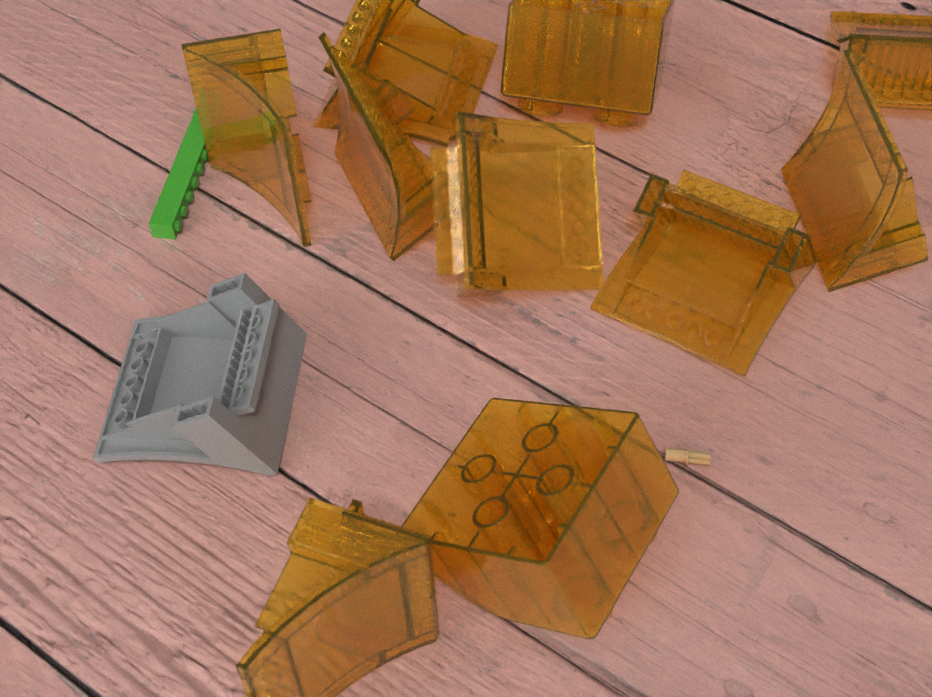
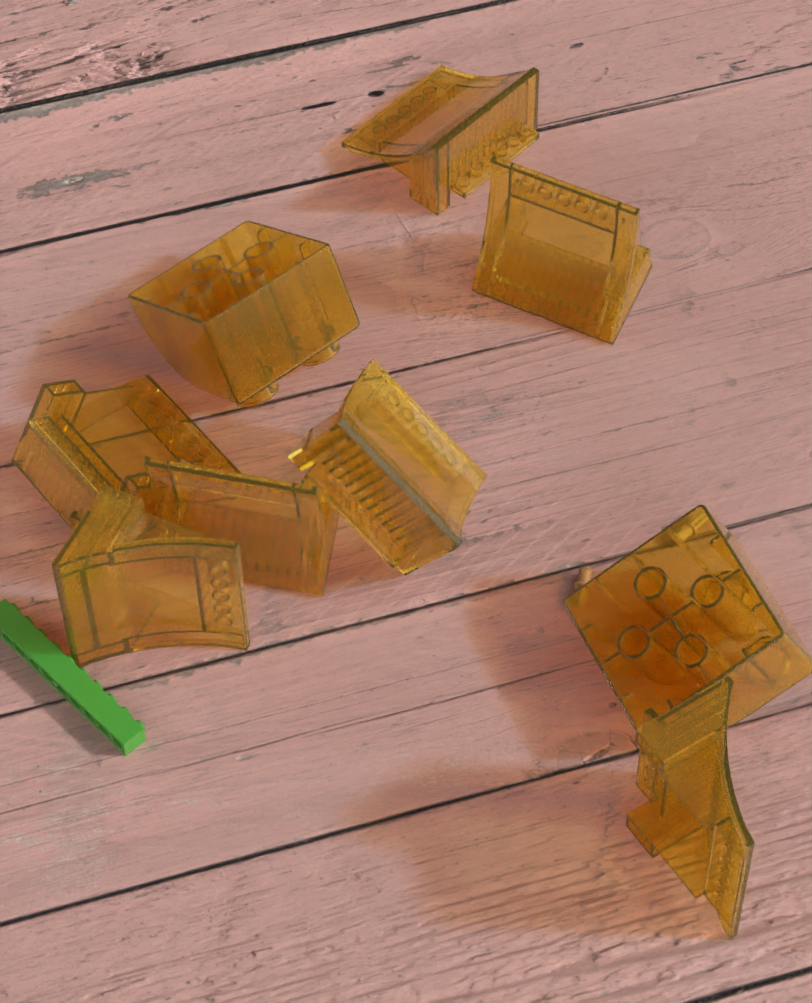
camera: 55 degrees left, 0 degrees up
(208, 383) = (349, 796): light grey slope -> none
(707, 269) = (540, 398): clear yellow slope -> none

